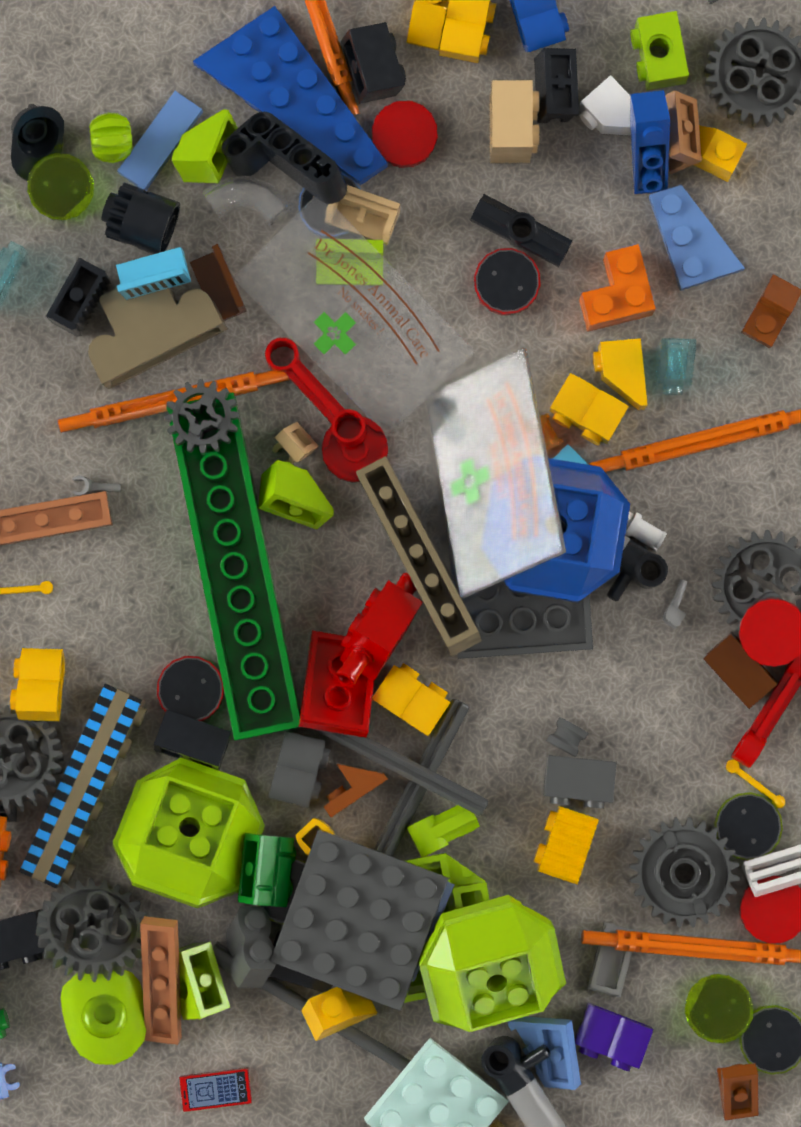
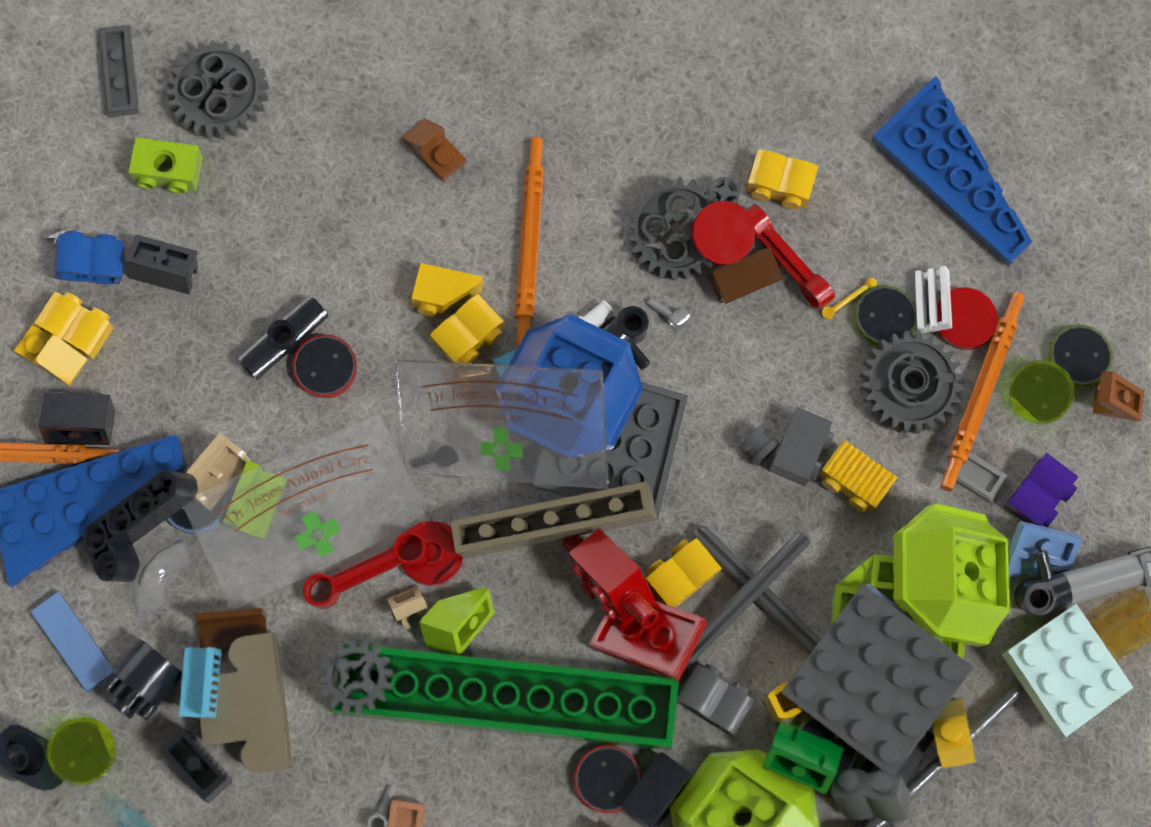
camera: 80 degrees left, 10 degrees down
(110, 137) = (52, 686): lime piece -> none
(157, 403) = (325, 717): orange axle -> none
(200, 149) = (99, 602): lime slope -> none
(361, 783) = (747, 645): dark orange slope -> none
(404, 133) = (153, 412): red tile -> none
(436, 831) = (810, 589): lime piece -> none
(511, 121) = (181, 309): tan brick -> none
(607, 109) = (206, 220): white slope -> none
(625, 298) = (374, 263): orange brick -> none
(649, 141) = (245, 195): blue slope -> none
(674, 365) = (454, 242): clear light blue slope -> none
(684, 131) = (246, 170): medium nougat panel -> none
(691, 240) = (346, 196): medium blue wing -> none
(719, 152) = (270, 153): yellow slope -> none

